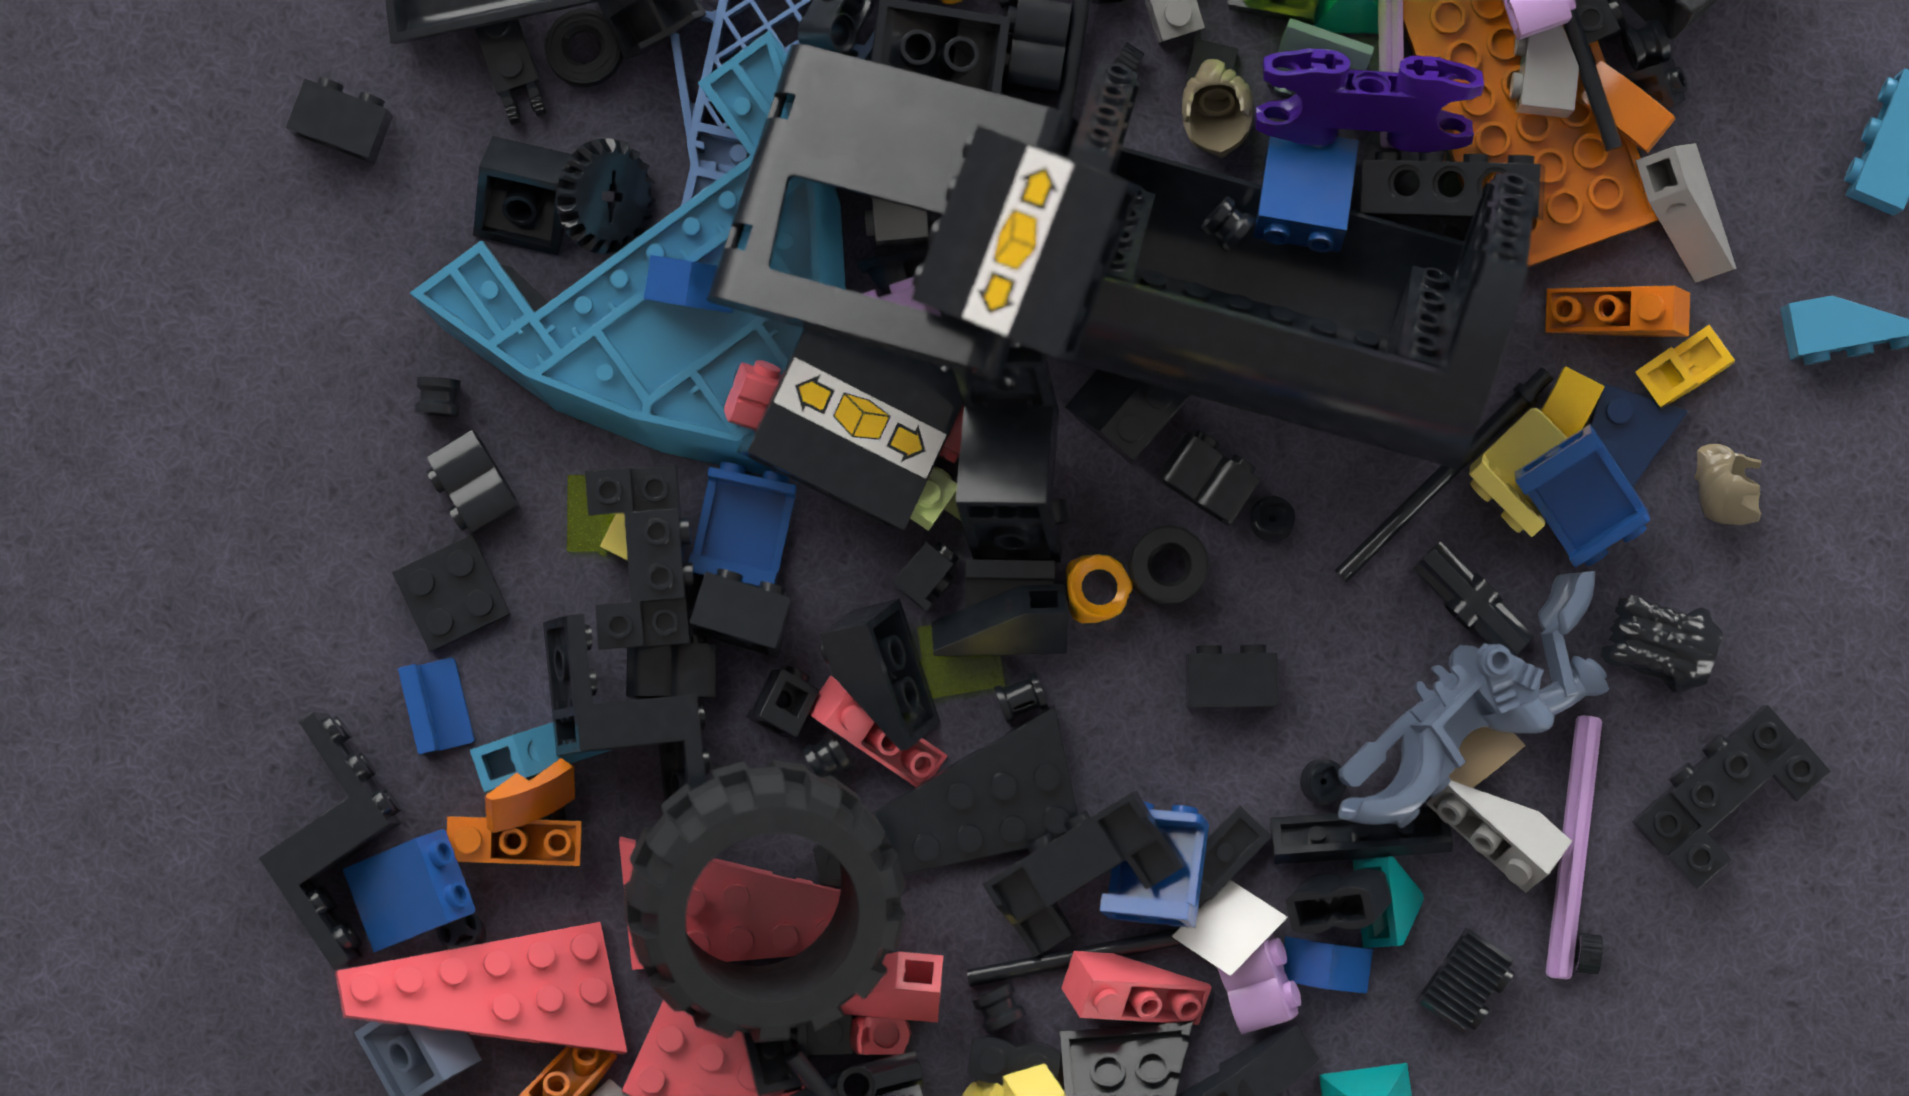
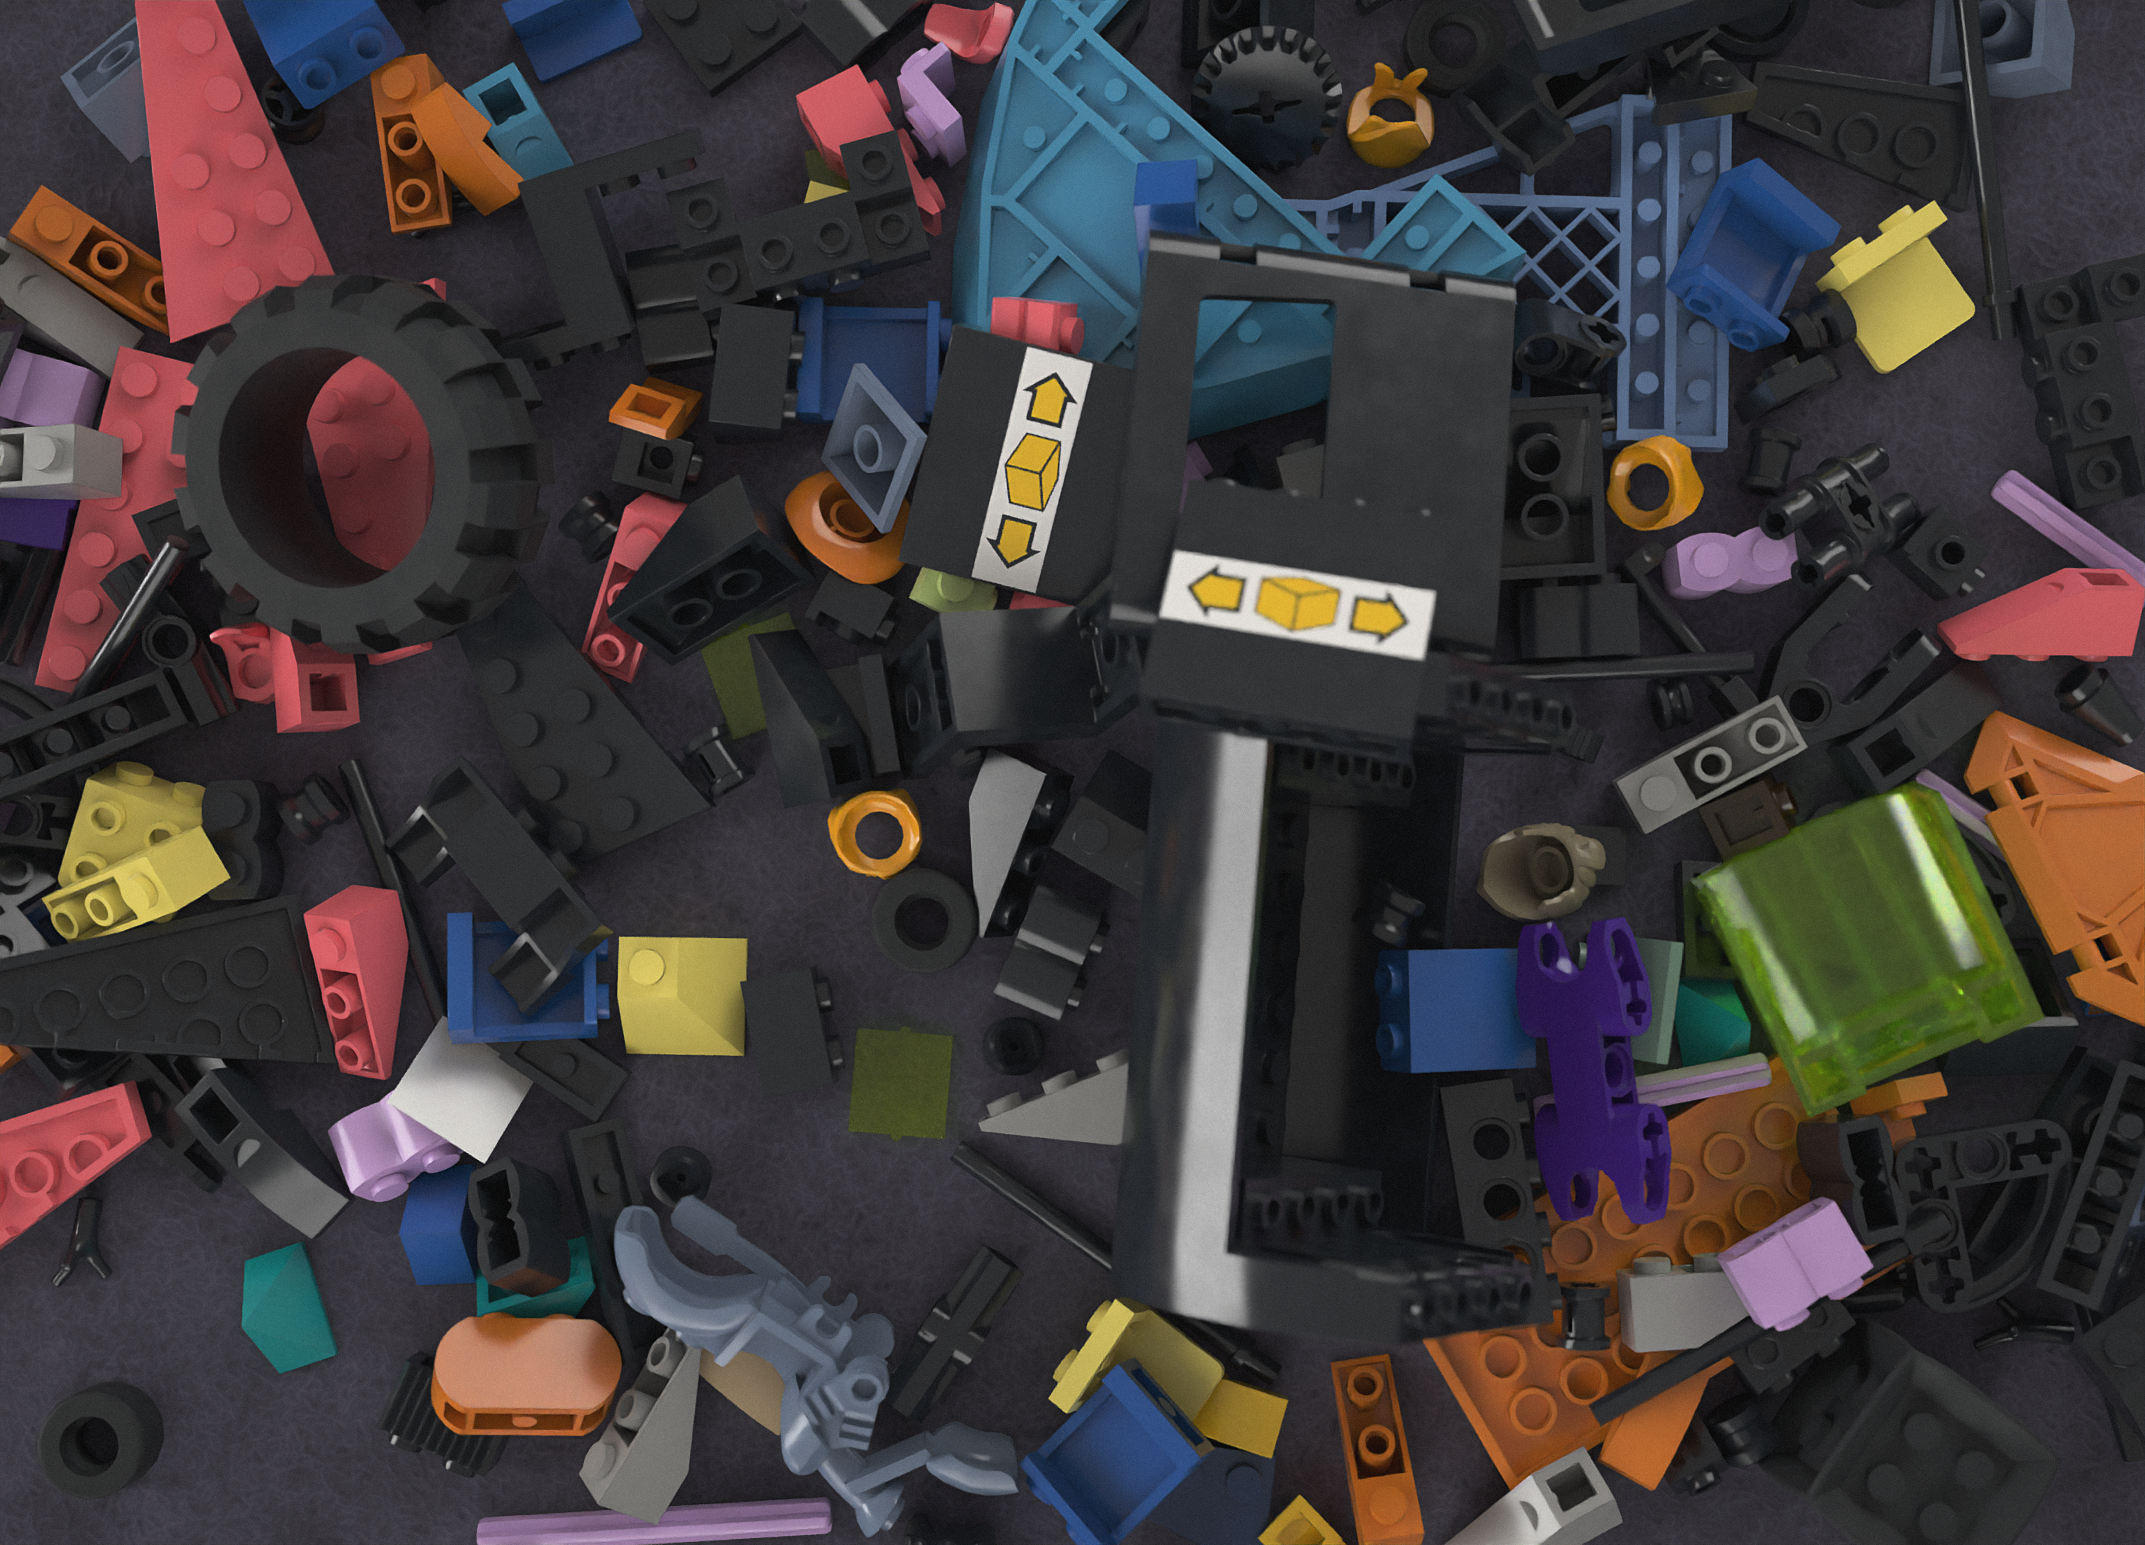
camera: 80 degrees right, 0 degrees up
(504, 406) = (969, 33): none -> coral hair
(560, 509) = (851, 110): none -> coral slope
(570, 447) = (924, 86): none -> lavender bracket
(647, 120) = (1386, 142): none -> light orange piece
(750, 691) = (657, 408): none -> orange slope
(817, 533) = (873, 447): none -> sand blue slope
(862, 563) = (840, 531): none -> orange hat
(1109, 488) = (1010, 830): none -> slope
(1190, 754) = (682, 995): none -> light yellow slope
(1284, 608) = (900, 1083): none -> clear neon green piece
(1328, 472) = (1070, 1107): none -> light grey slope
(1447, 914) = (525, 1375): none -> orange brick
(1543, 142) = (1583, 1316): none -> black bush

